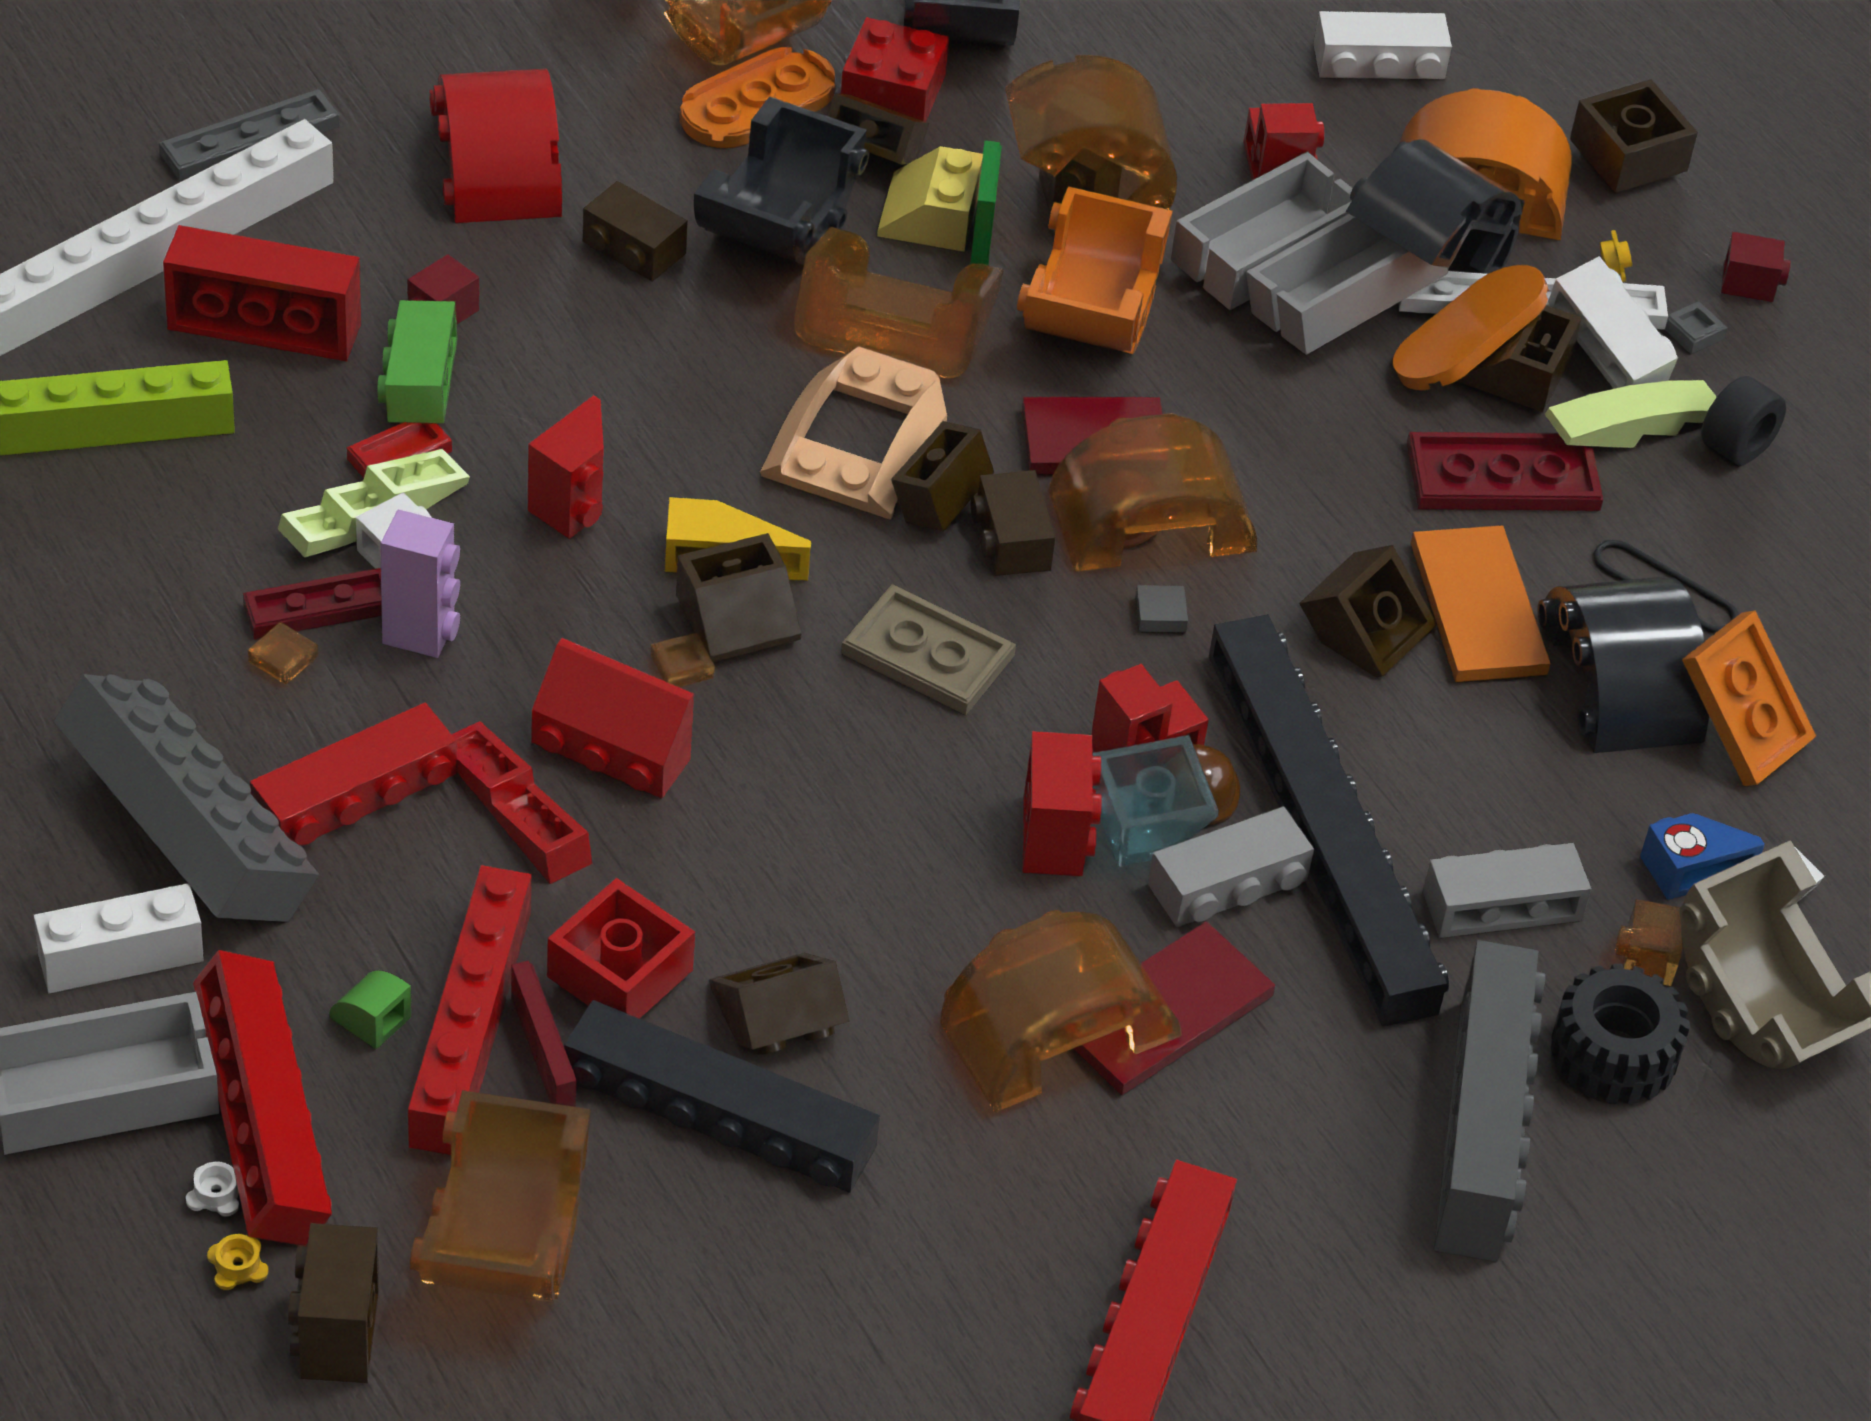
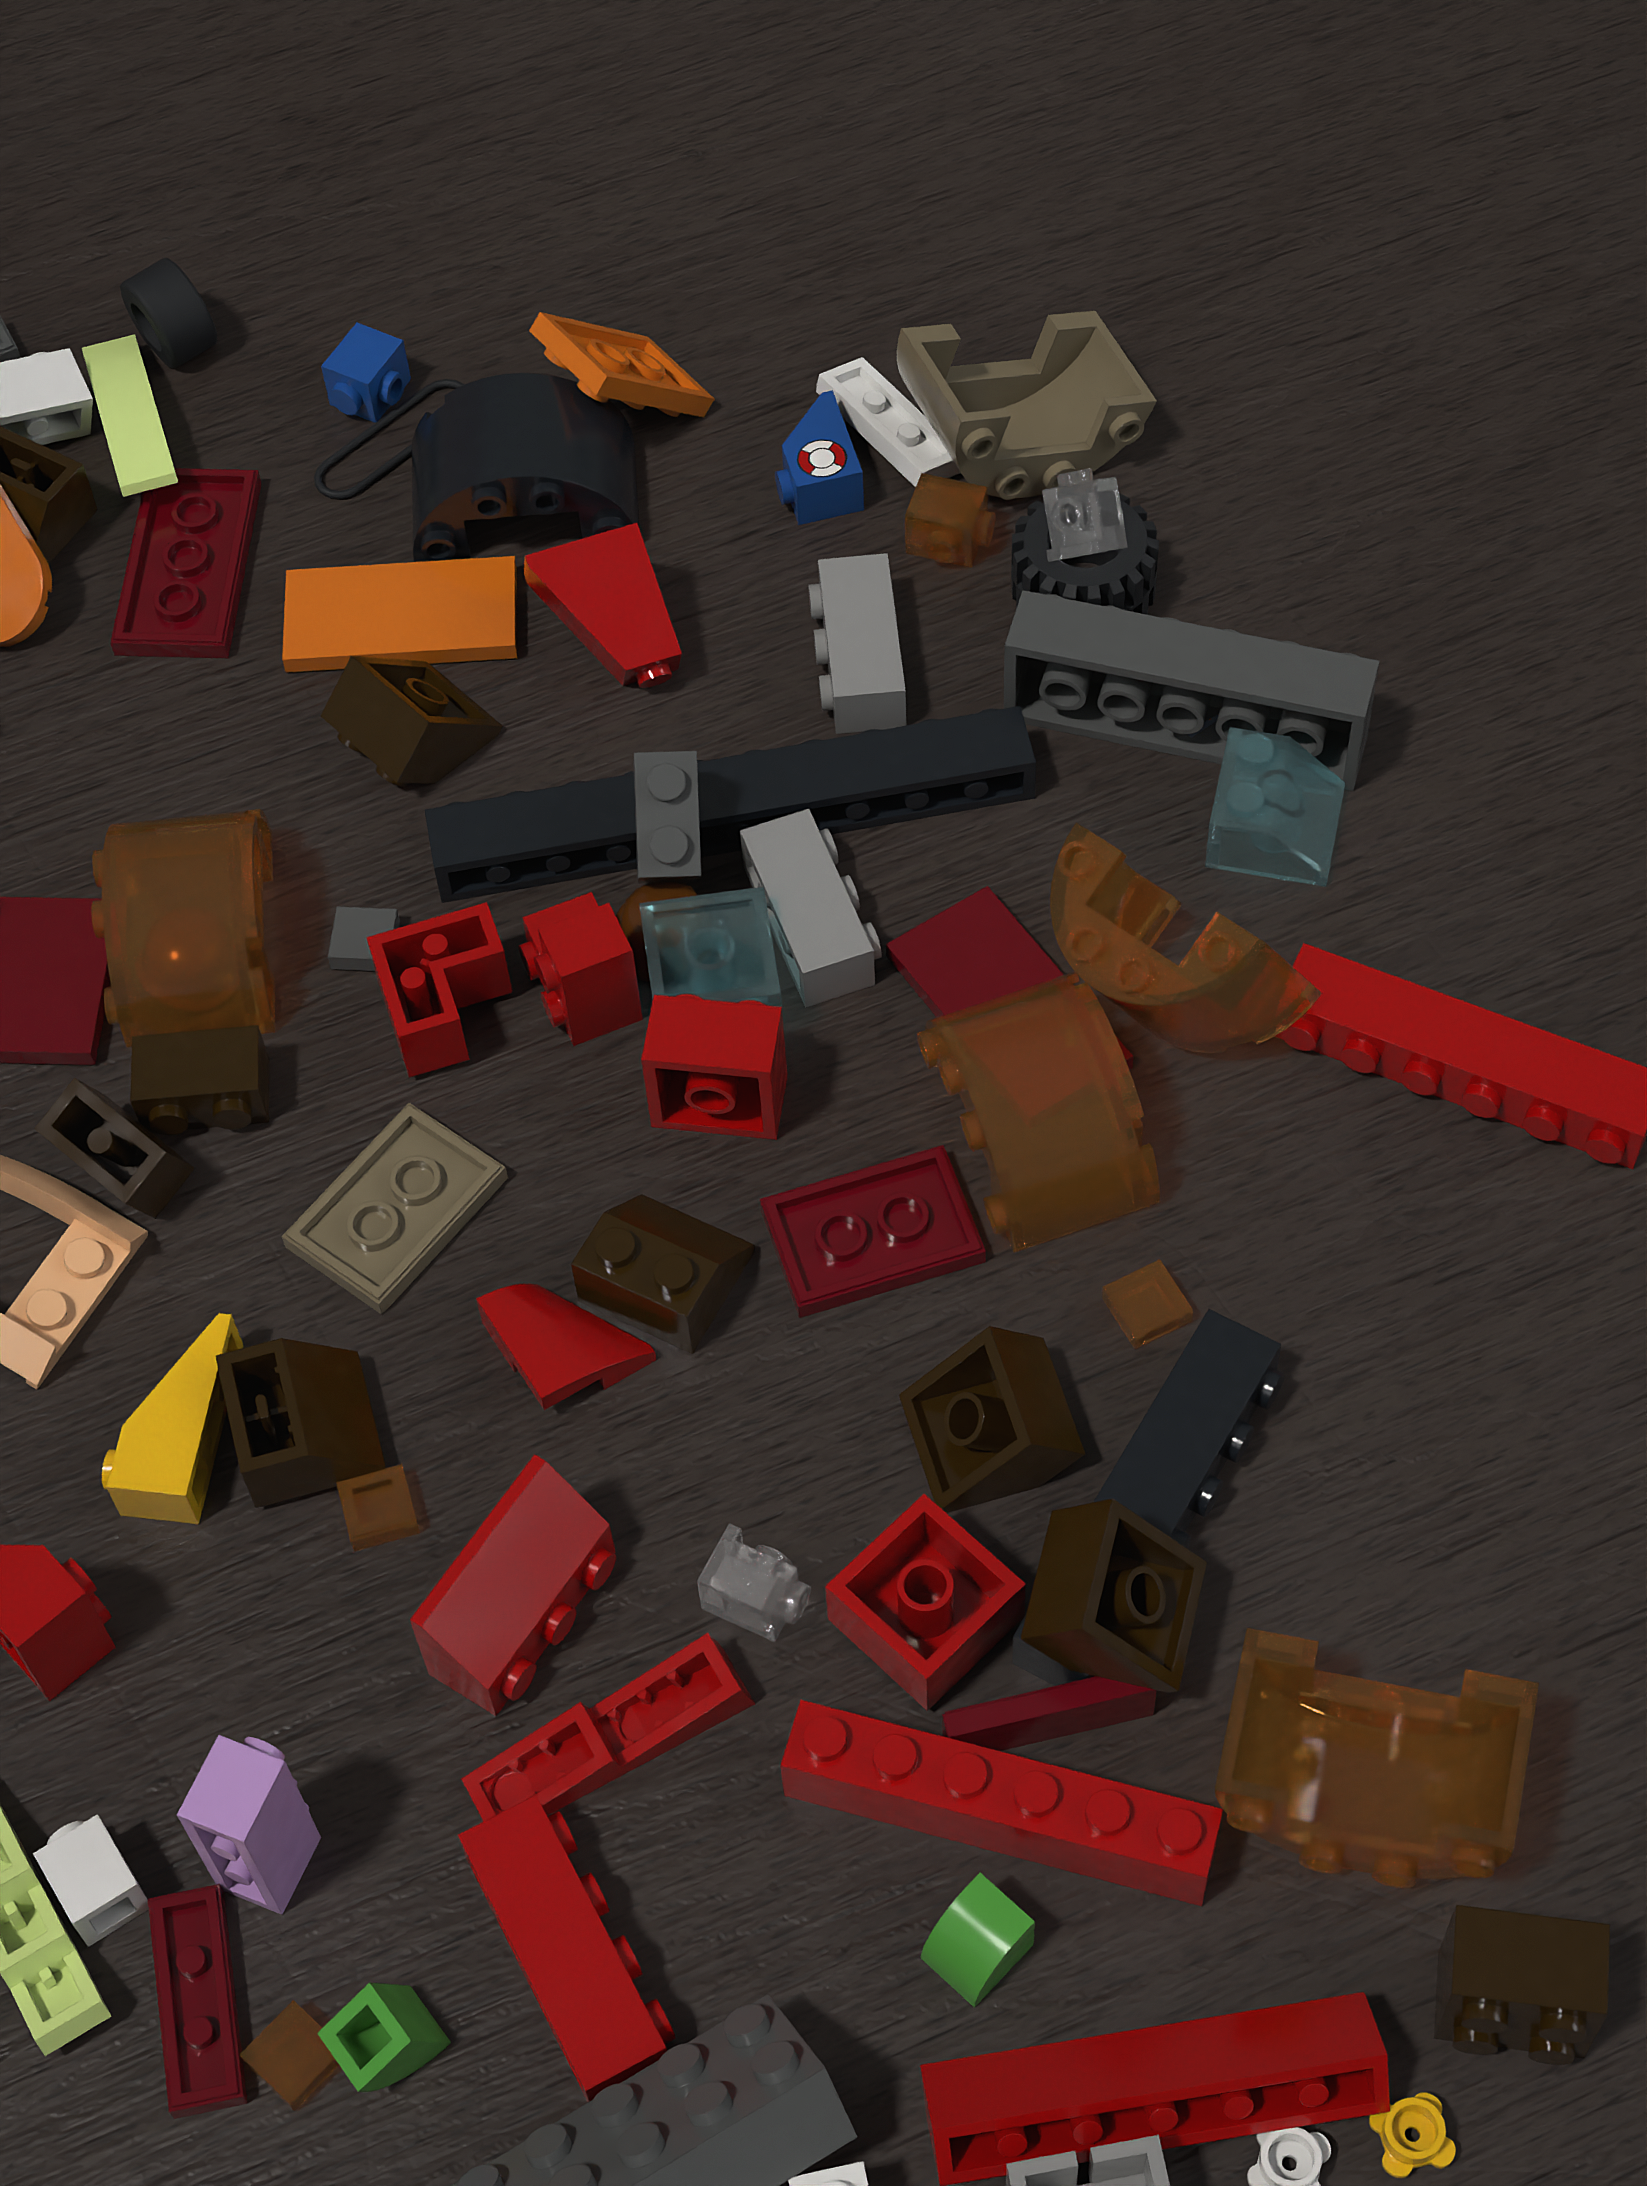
camera: 75 degrees left, 10 degrees up
(293, 690) = (383, 2036): none -> bright green brick
(616, 1044) = (1114, 1597): none -> dark brown slope
(635, 856) = (752, 1586): none -> clear brick
(821, 743) = (558, 1343): none -> red slope
(891, 796) = (659, 1270): none -> dark brown slope
(899, 1102) = (1147, 1304): none -> clear orange tile
(935, 921) = (872, 1231): none -> dark red tile
(1108, 631) = (432, 972): none -> red brick
(1193, 1046) = (1219, 995): none -> clear orange cylinder
(1271, 744) = (667, 816): none -> dark grey brick
(1387, 1175) = (1273, 810): none -> clear light blue slope
(1500, 718) = (610, 603): none -> red slope
(1631, 993) = (1083, 516): none -> clear brick
(1717, 551) = (366, 373): none -> blue brick

